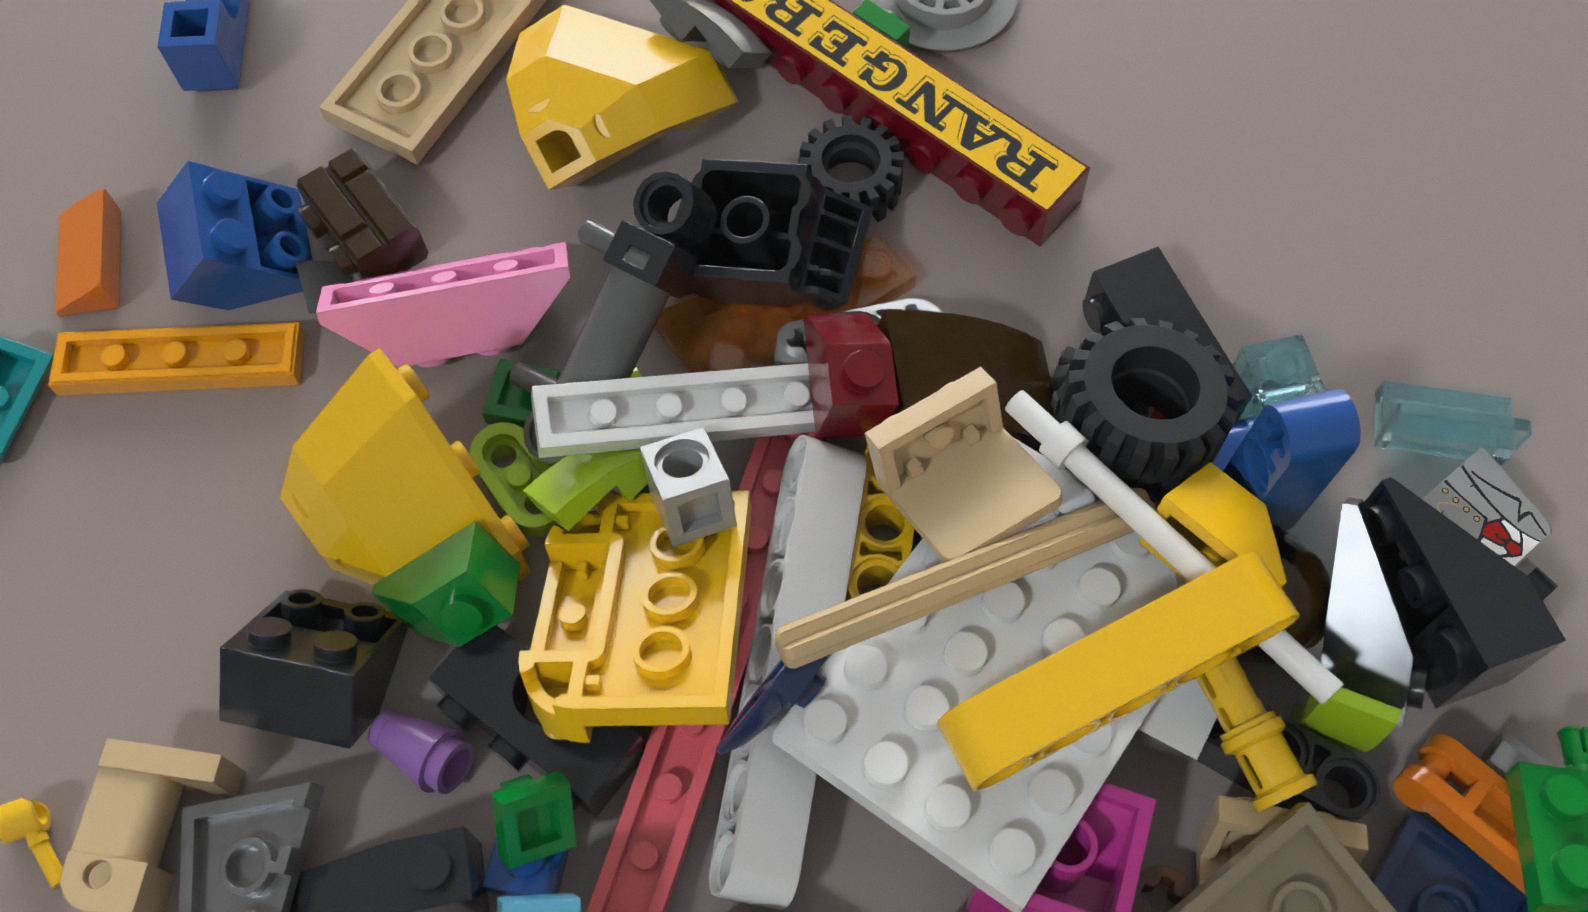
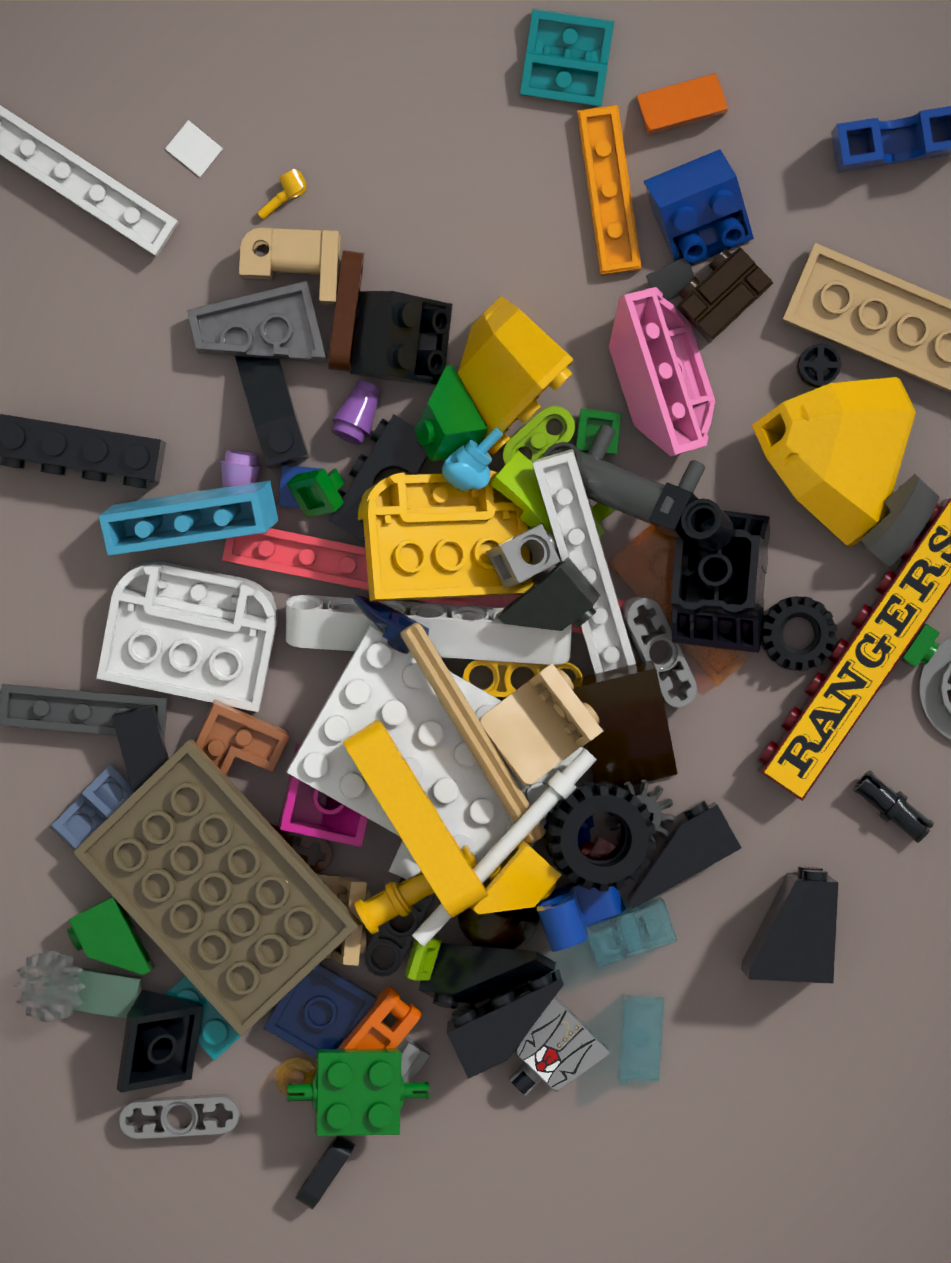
camera: 80 degrees right, 25 degrees up
(253, 748) = (346, 310): none -> reddish brown beam
(476, 111) = (826, 358): none -> black wheel
(528, 560) = (468, 465): none -> medium azure piece
(764, 443) = (554, 601): none -> pearl dark grey slope
(849, 374) = (615, 647): dark red slope -> none
(1097, 83) = (893, 806): none -> black pin
(1280, 186) = (797, 931): none -> black slope

